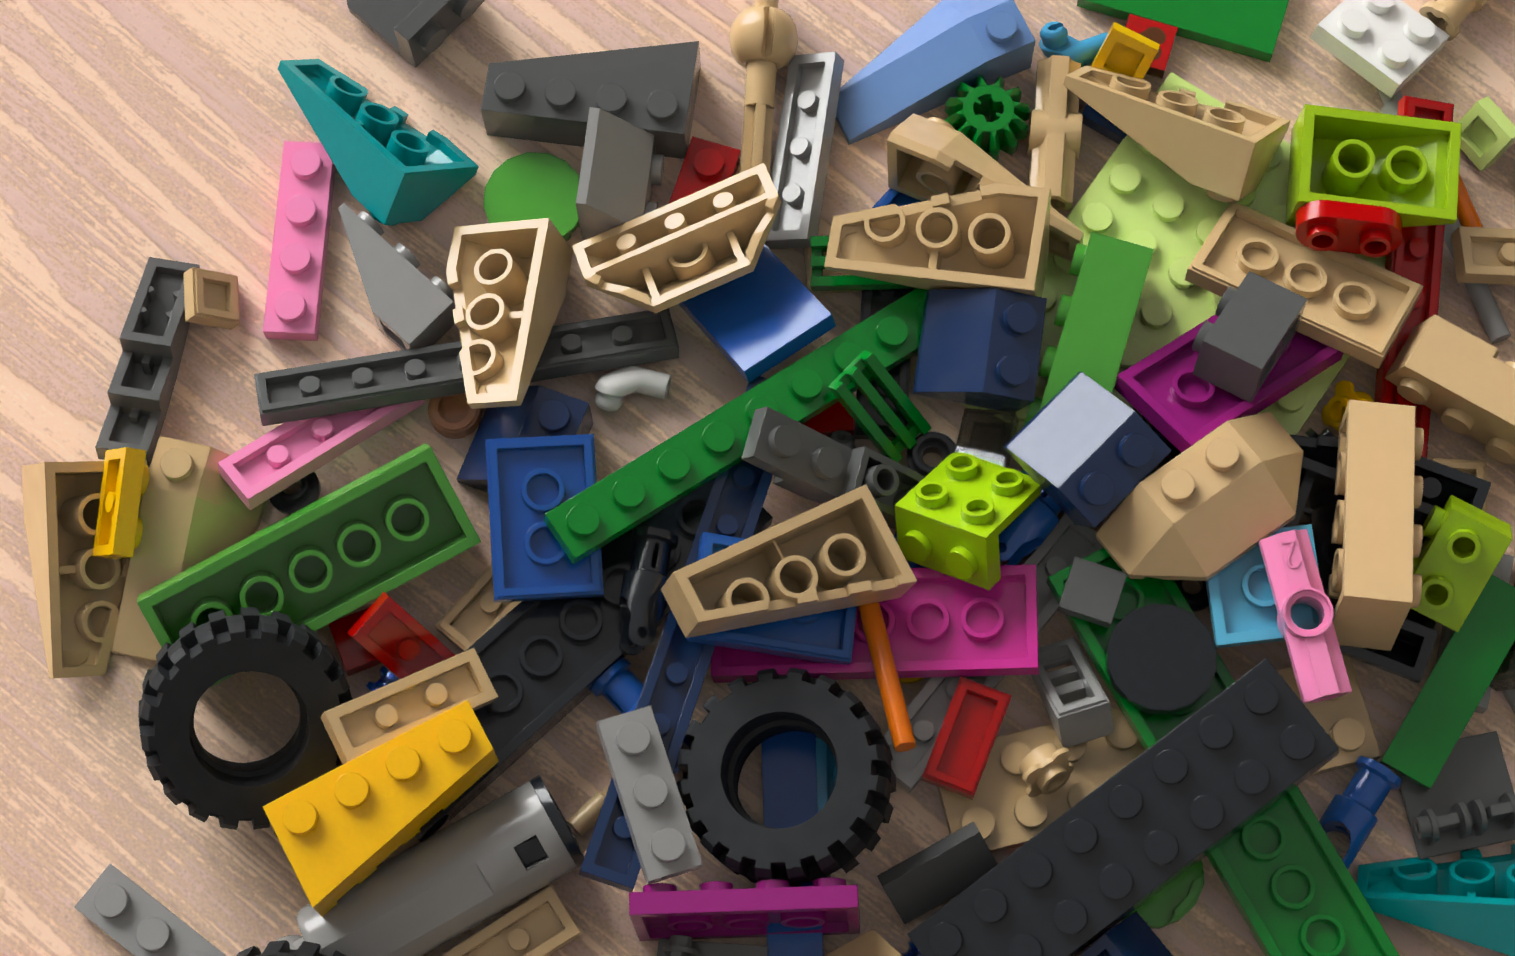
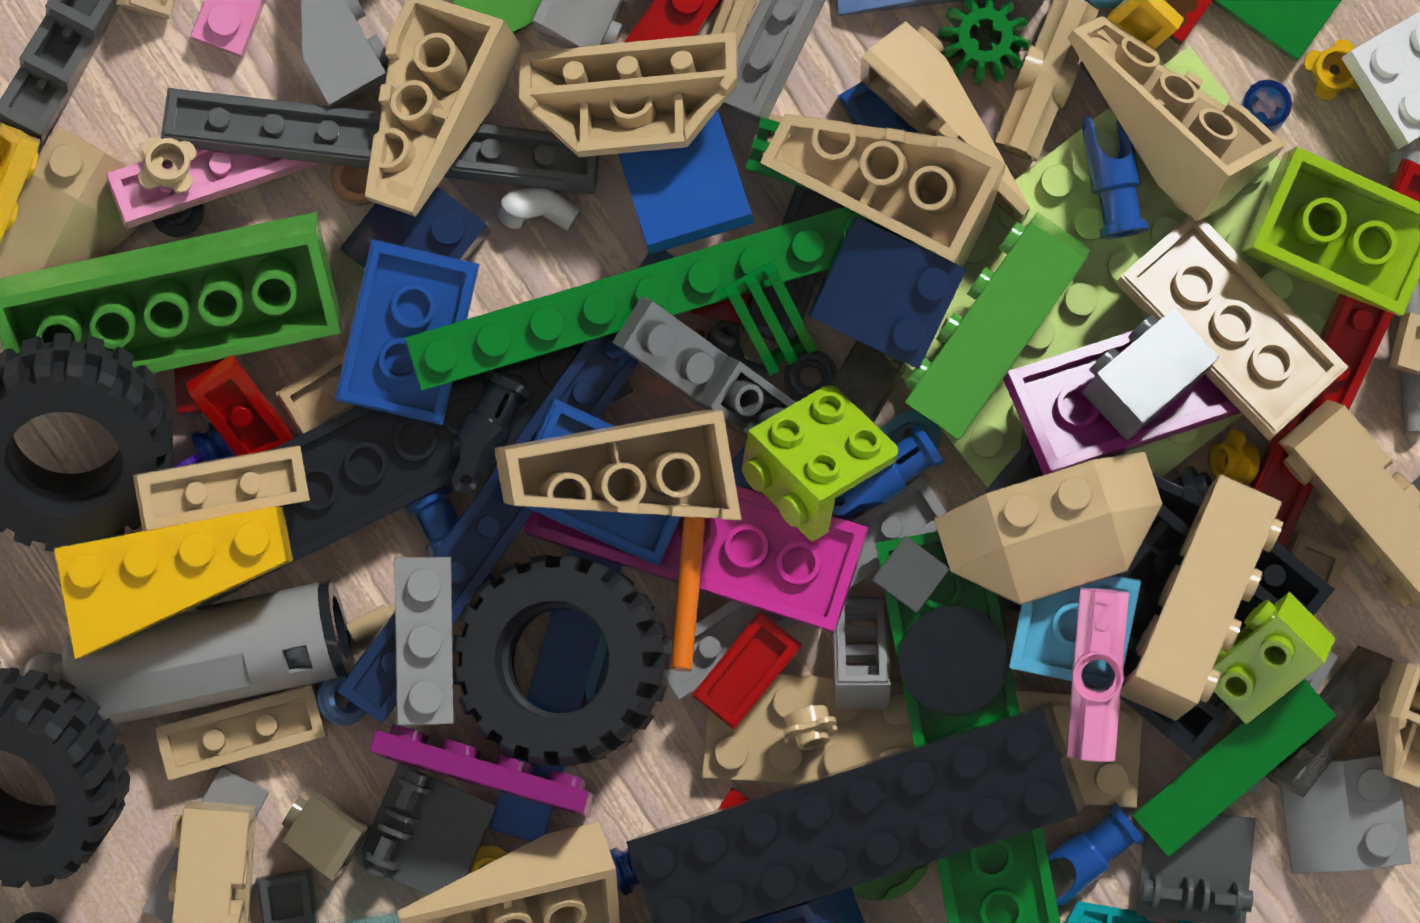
camera: 15 degrees right, 15 degrees up
(270, 424) = (162, 150): none -> tan plate
(578, 905) = (329, 708): none -> medium blue plate
(937, 873) = (678, 788): dark grey tile -> none
(1087, 450) = (950, 439): slope -> none
(1150, 196) = (1115, 184): none -> blue piece
(1259, 89) = (1273, 90): none -> clear blue bush
(1305, 69) = (1319, 65): none -> yellow plate
(1348, 228) = (1289, 284): red plate -> none

